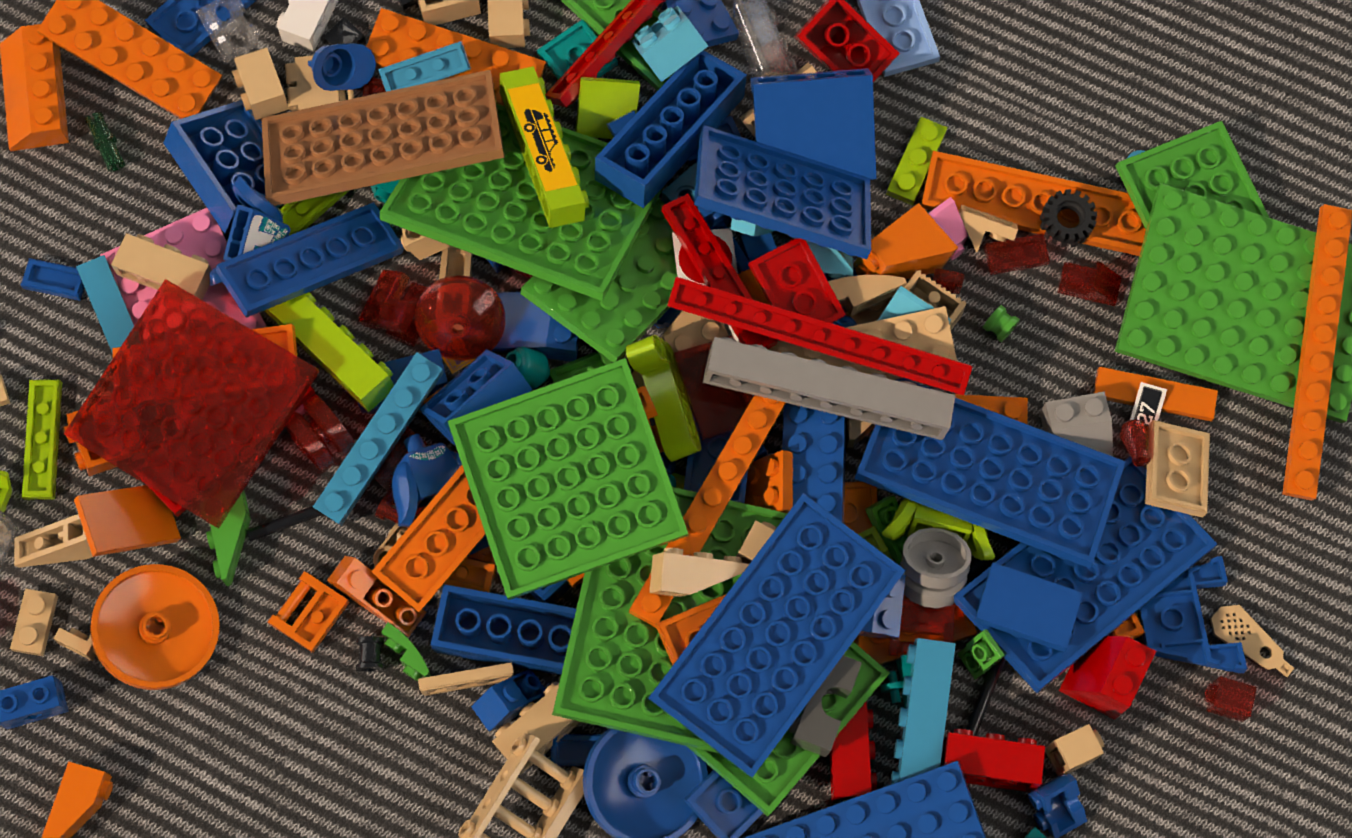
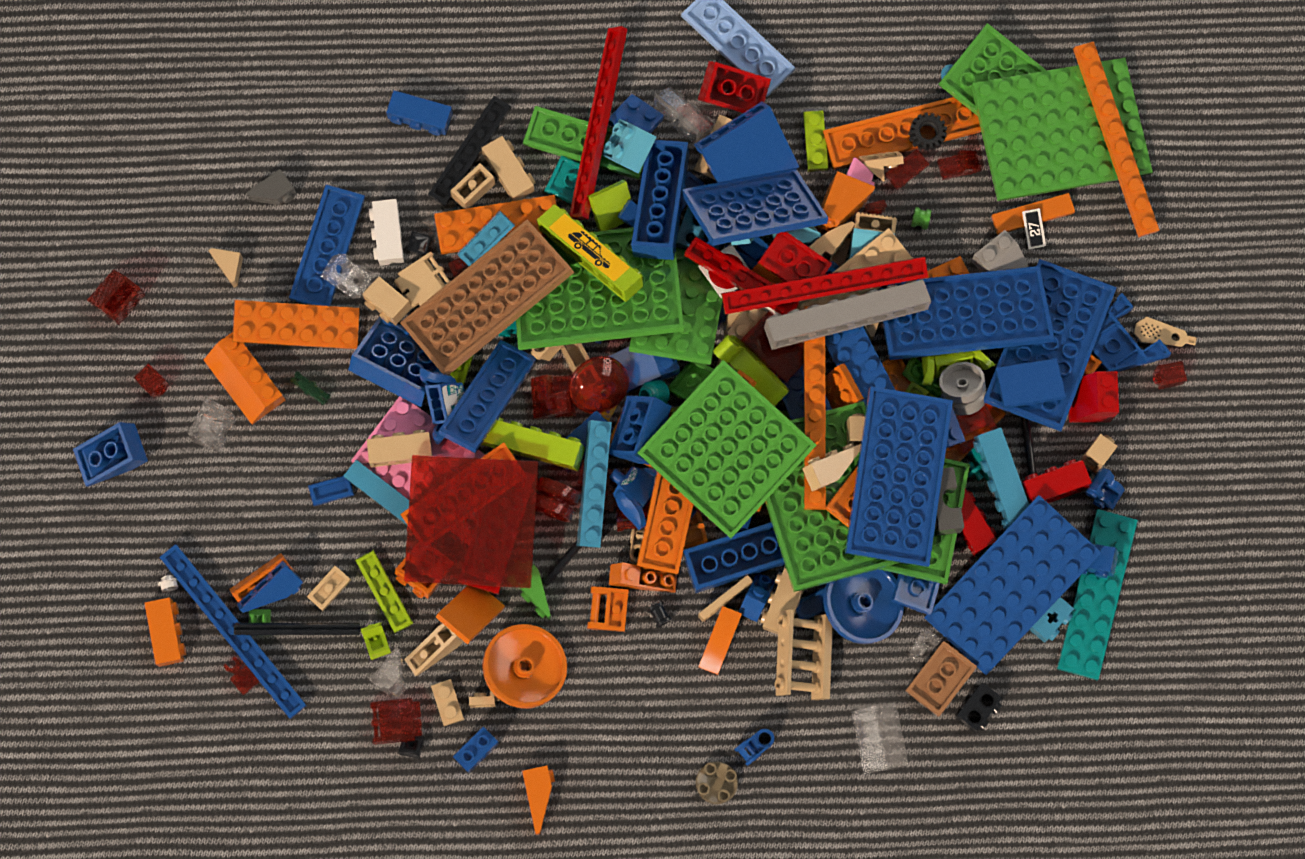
camera: 30 degrees left, 5 degrees up
(342, 66) = (433, 264): blue piece -> none
(412, 660) = (688, 605): bright green slope -> none
(428, 730) = (720, 640): none -> orange slope
(981, 654) = (1016, 425): bright green slope -> none
(1136, 440) = (1037, 248): clear red cone -> none
(1178, 469) = (1070, 253): tan tile -> none

